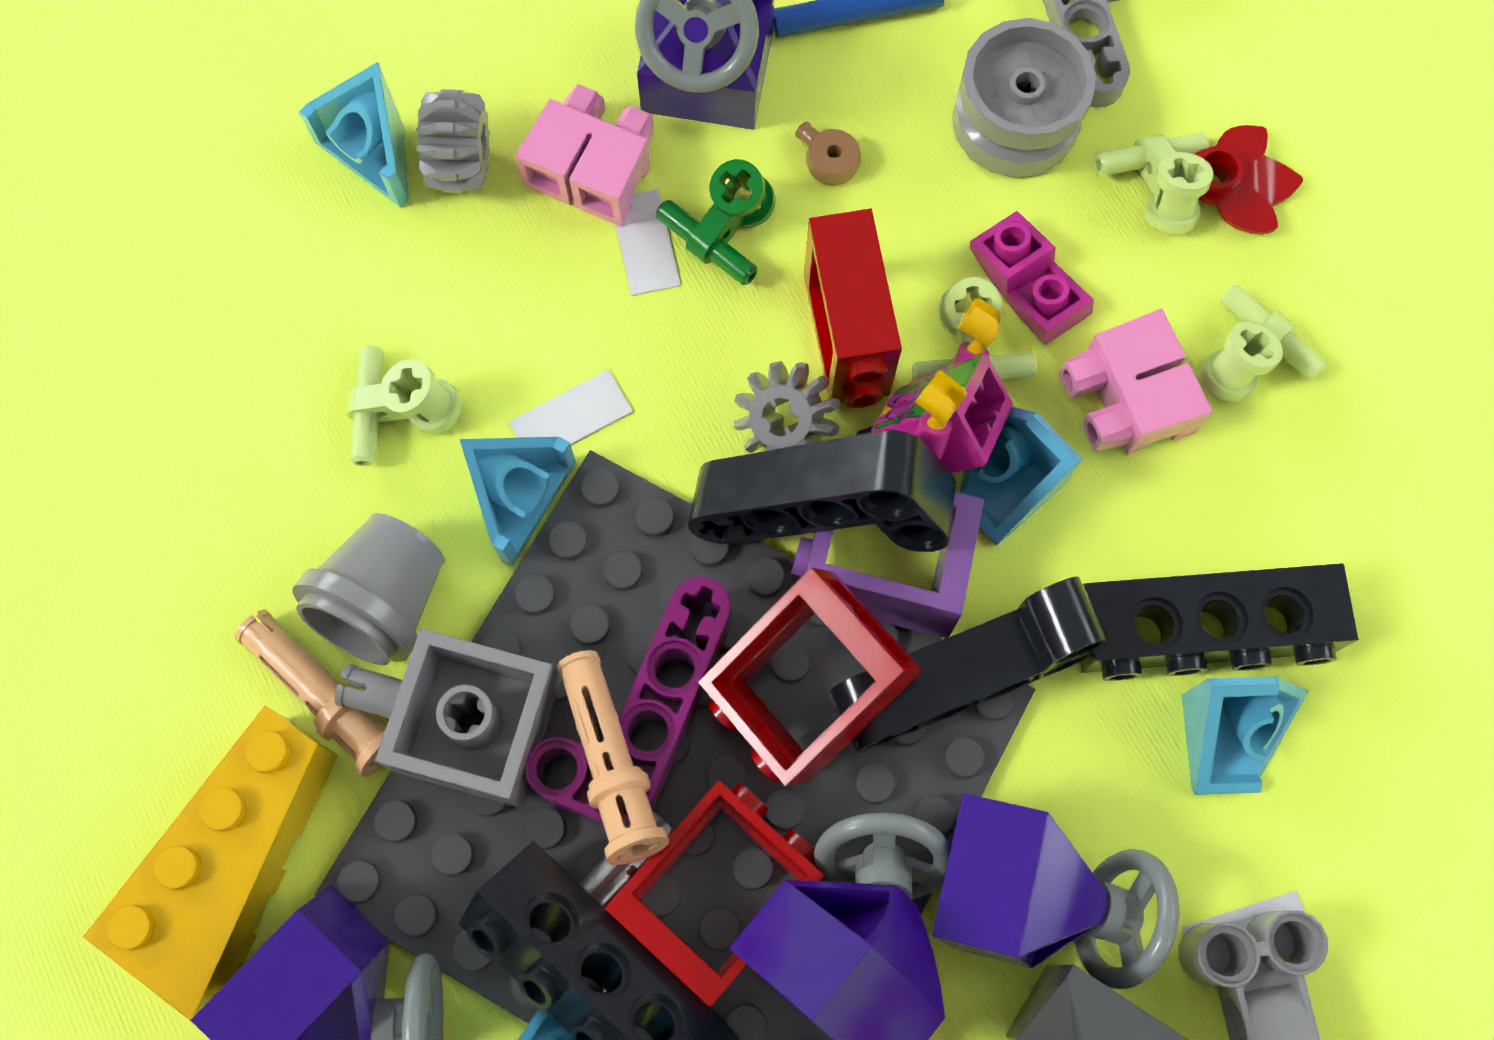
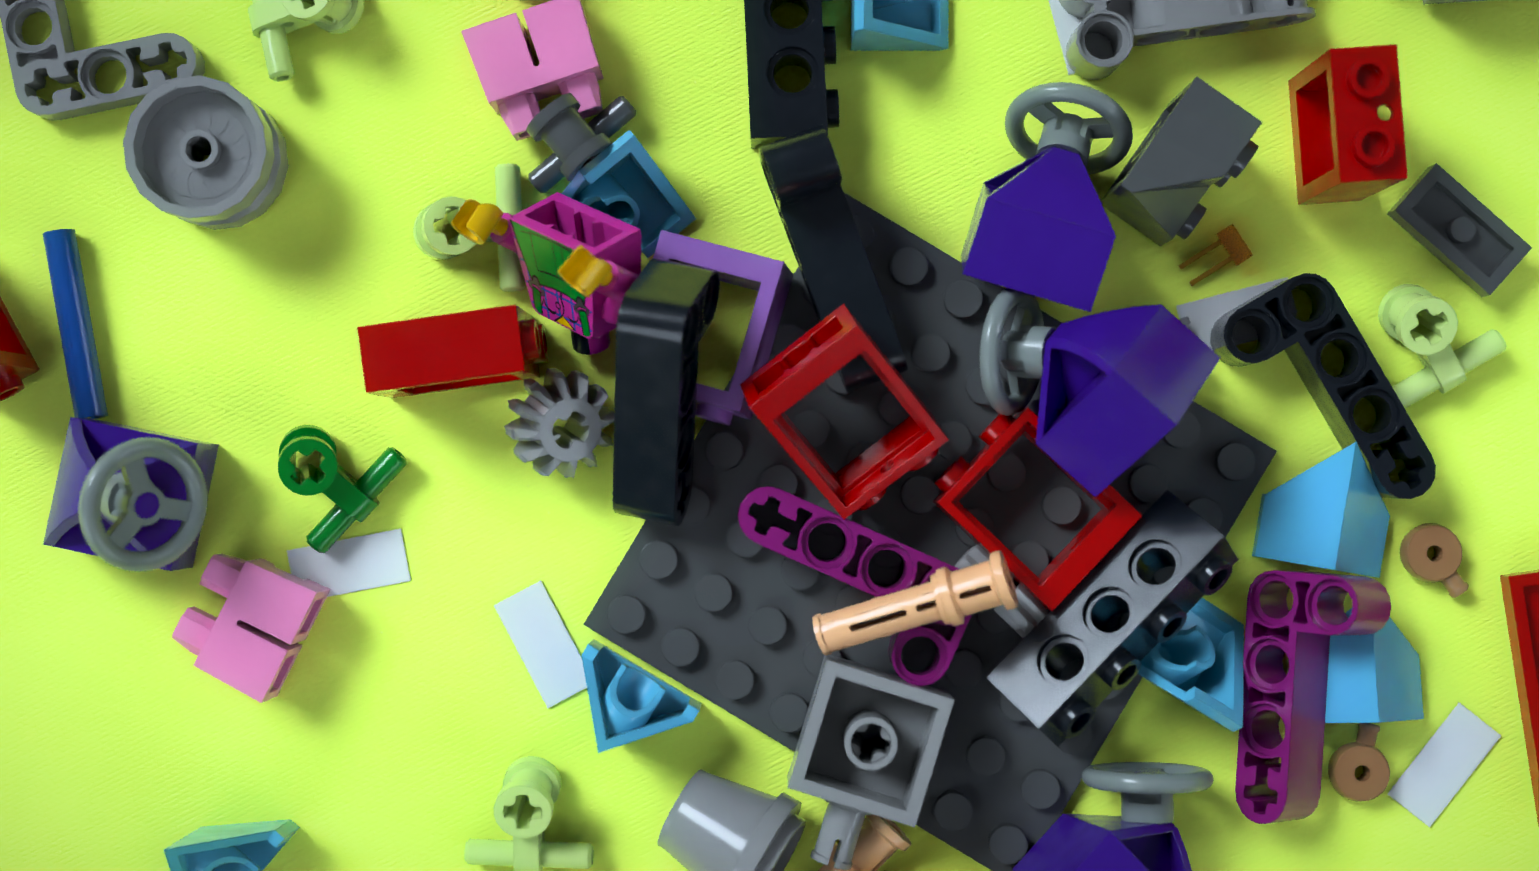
camera: 85 degrees left, 15 degrees up
(453, 140) = (237, 769): light grey gear -> none
(827, 145) = (243, 367): medium nougat piece -> none
(1029, 280) = (407, 161): dark pink slope -> none
(1068, 408) = (572, 138): none -> dark grey piece

